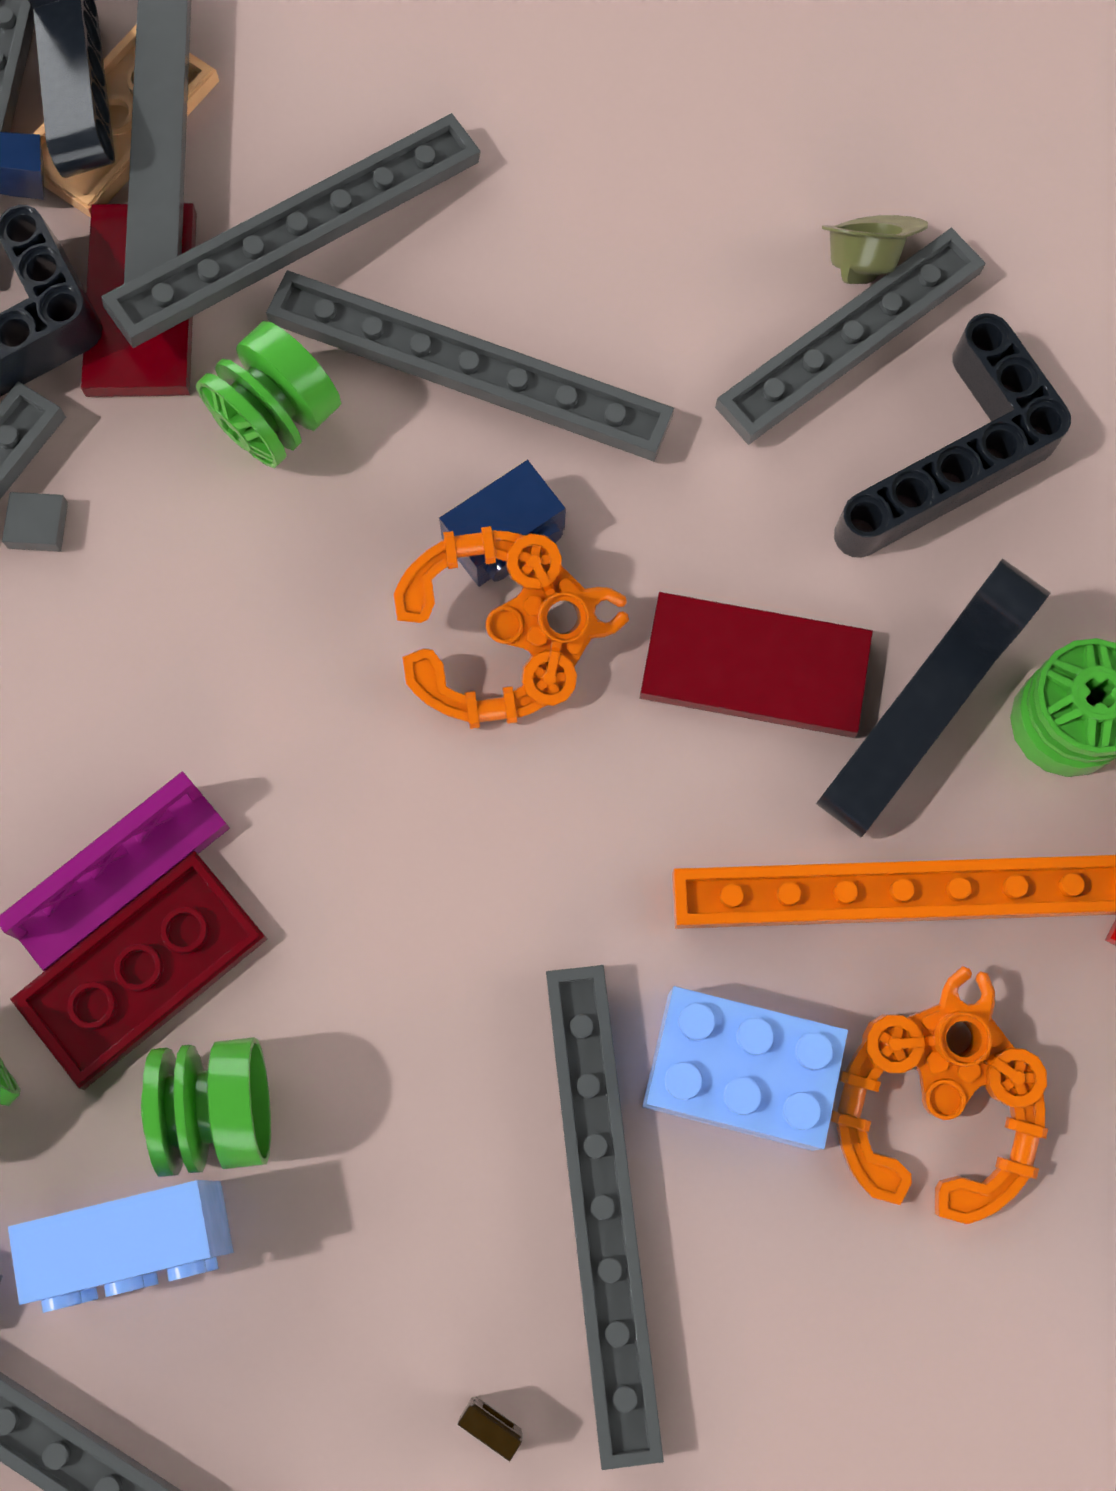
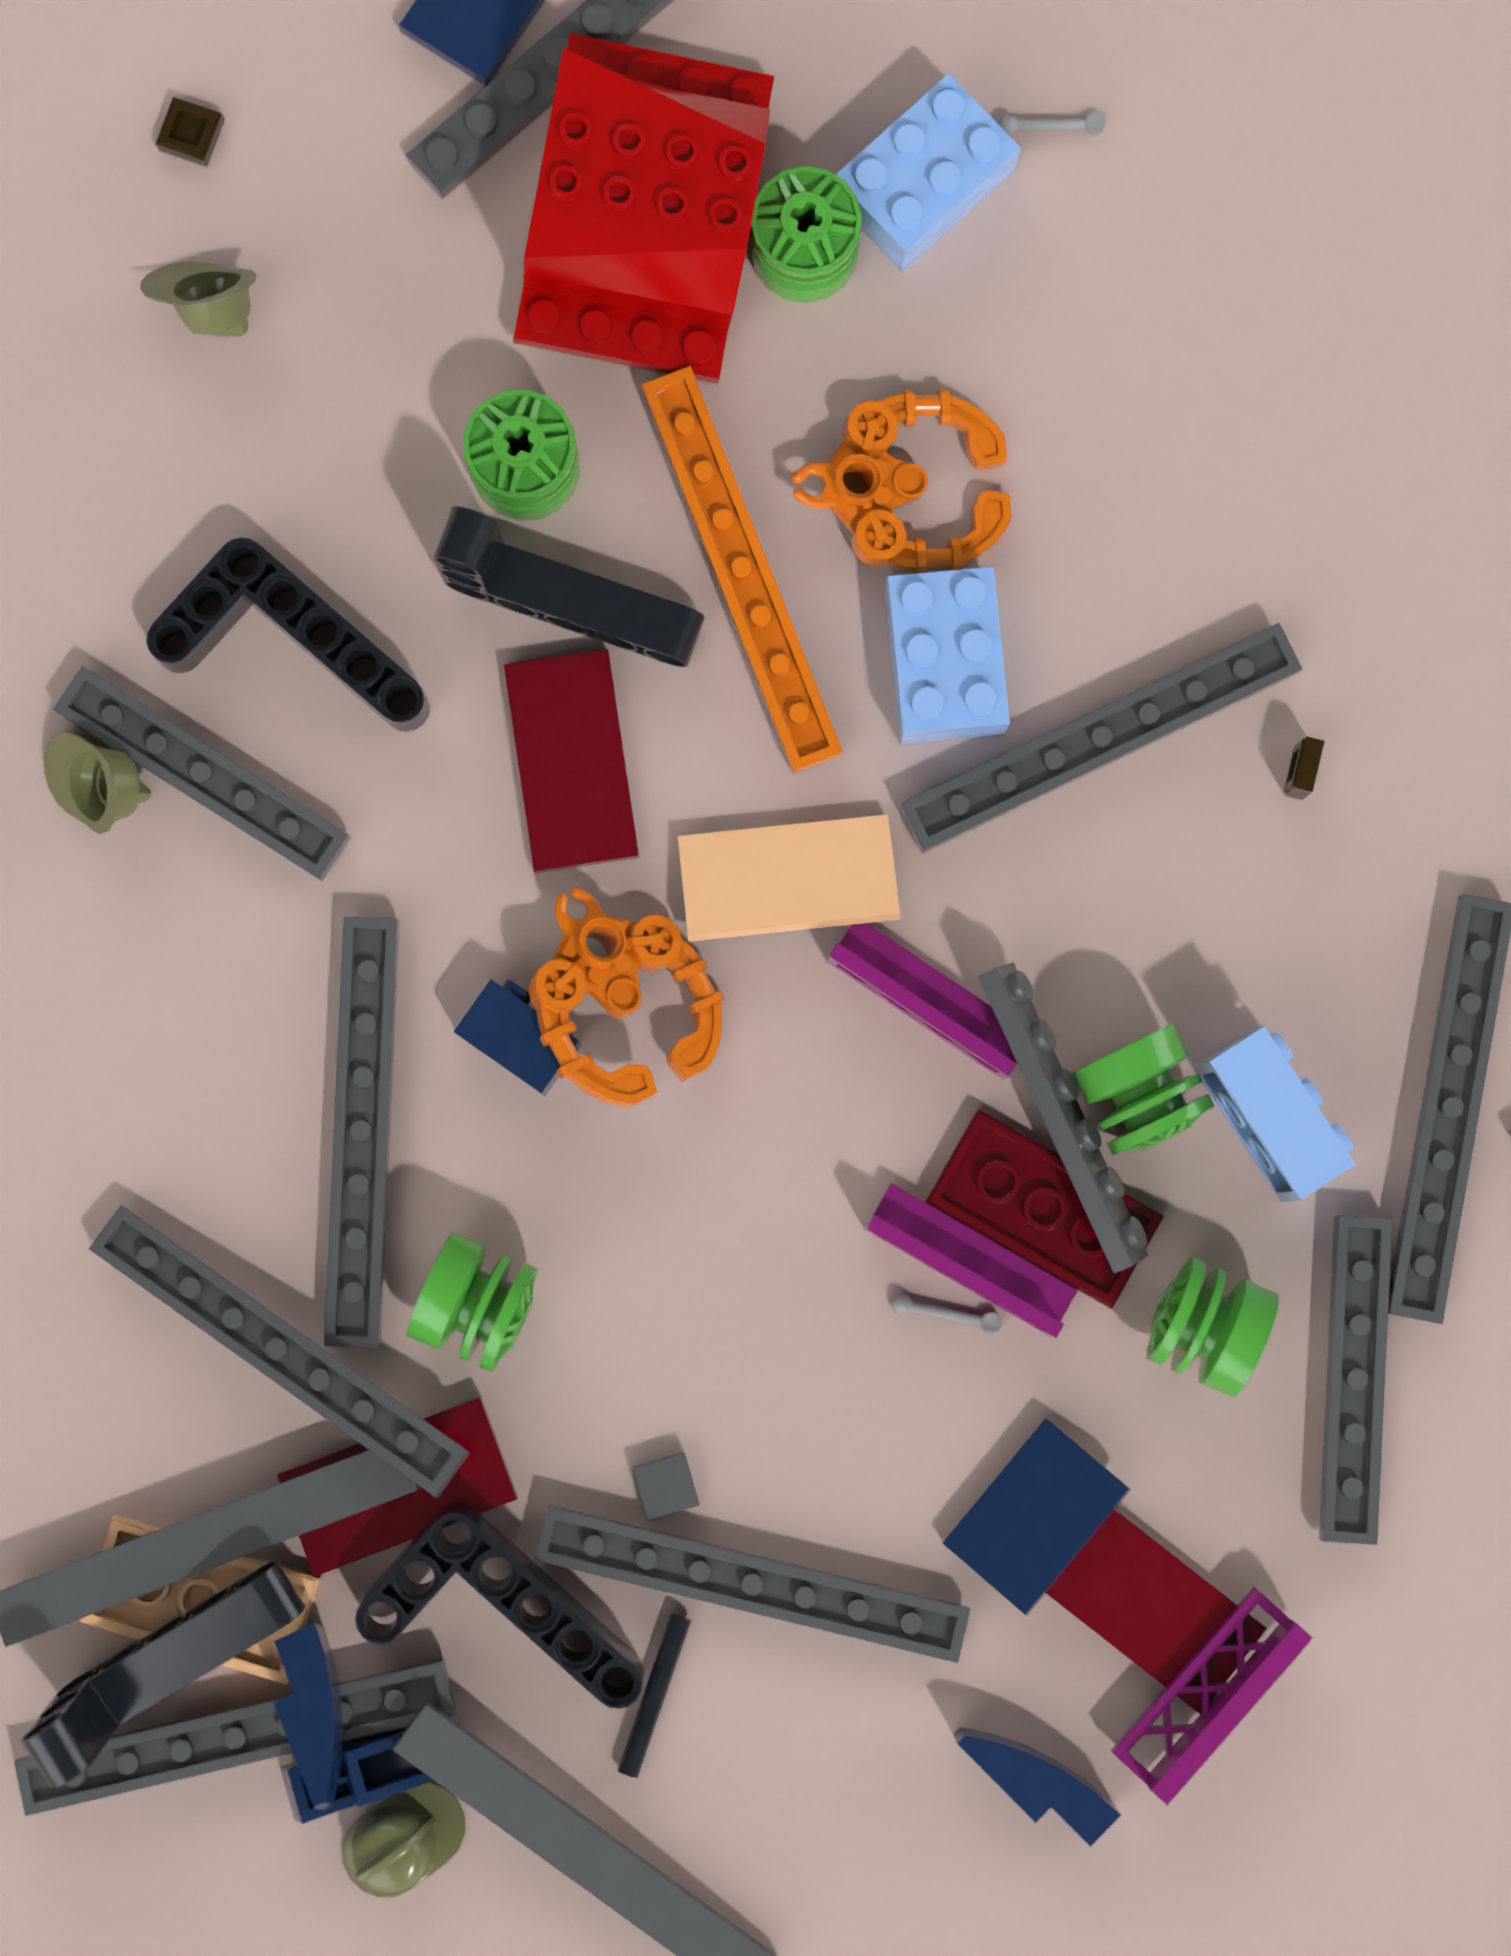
camera: 110 degrees left, 10 degrees up
(106, 796) = (989, 1321): none -> light grey hinge
(213, 1013) = (1071, 1132): none -> dark grey plate
(391, 926) = (924, 996): none -> magenta fence
(566, 830) = (788, 877): none -> light nougat tile

